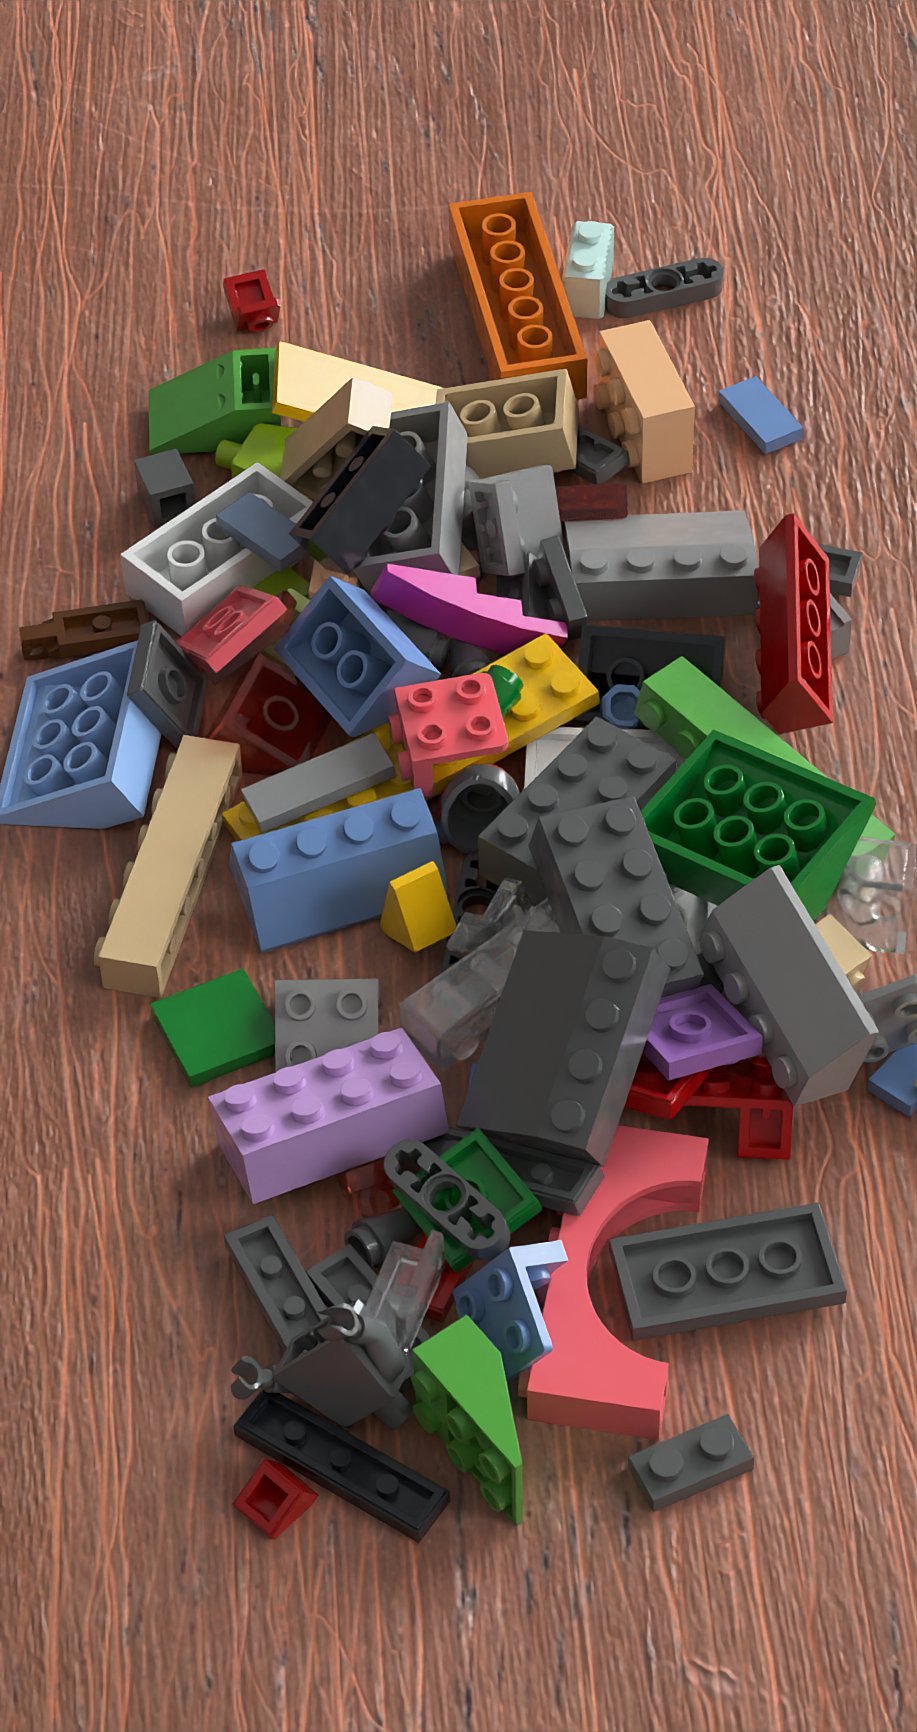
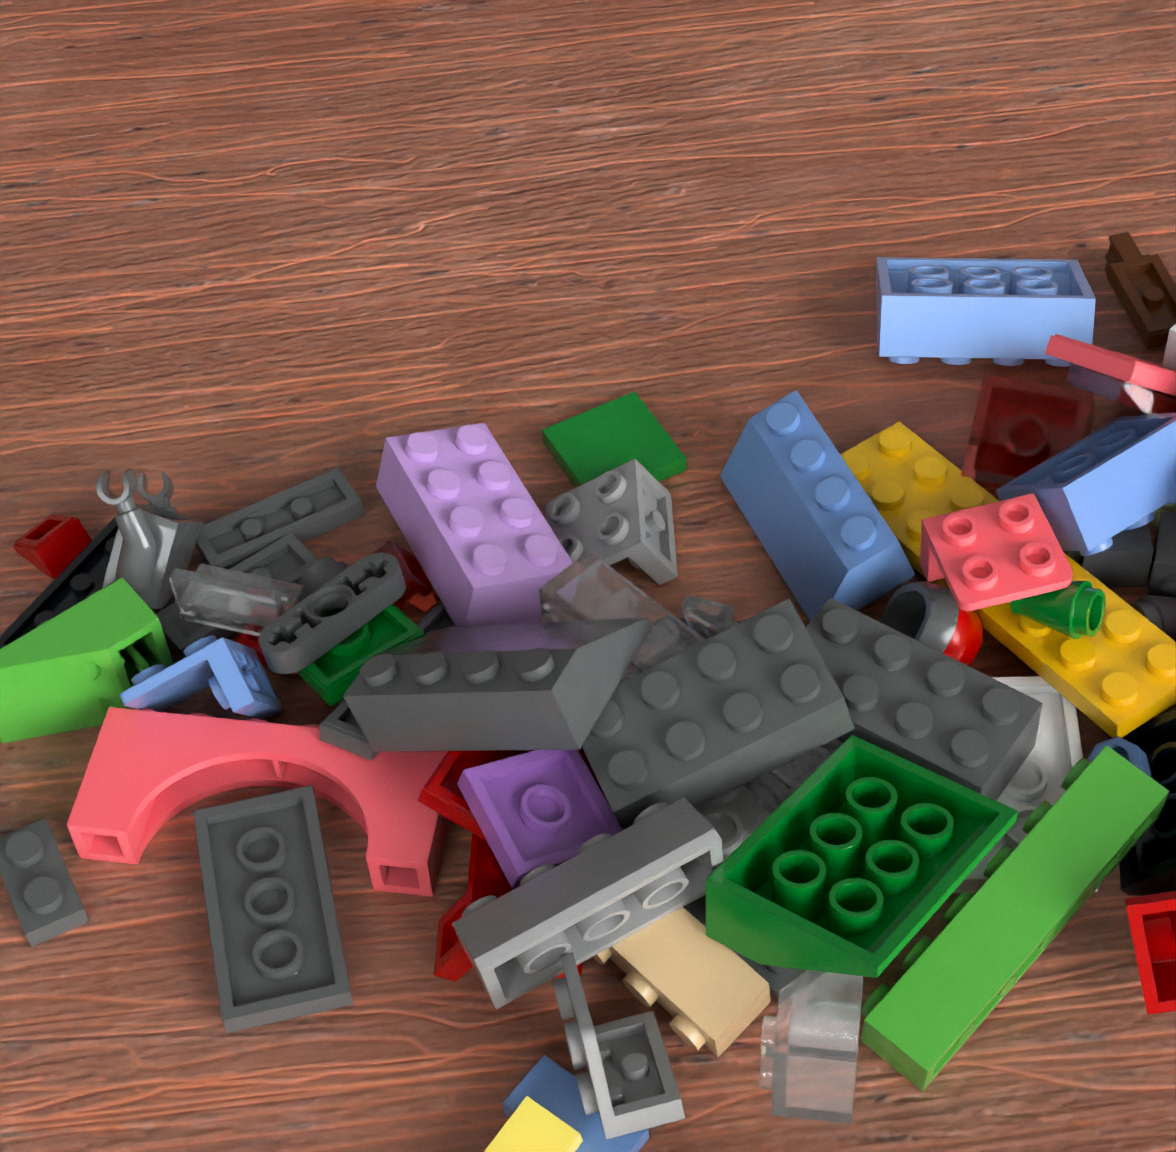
camera: 90 degrees right, 0 degrees up
(167, 684) = (1034, 316): dark grey tile -> none
(169, 867) = (839, 385): tan brick -> none
(318, 782) = (922, 468): light grey tile -> none
(417, 909) = (750, 574): yellow slope -> none

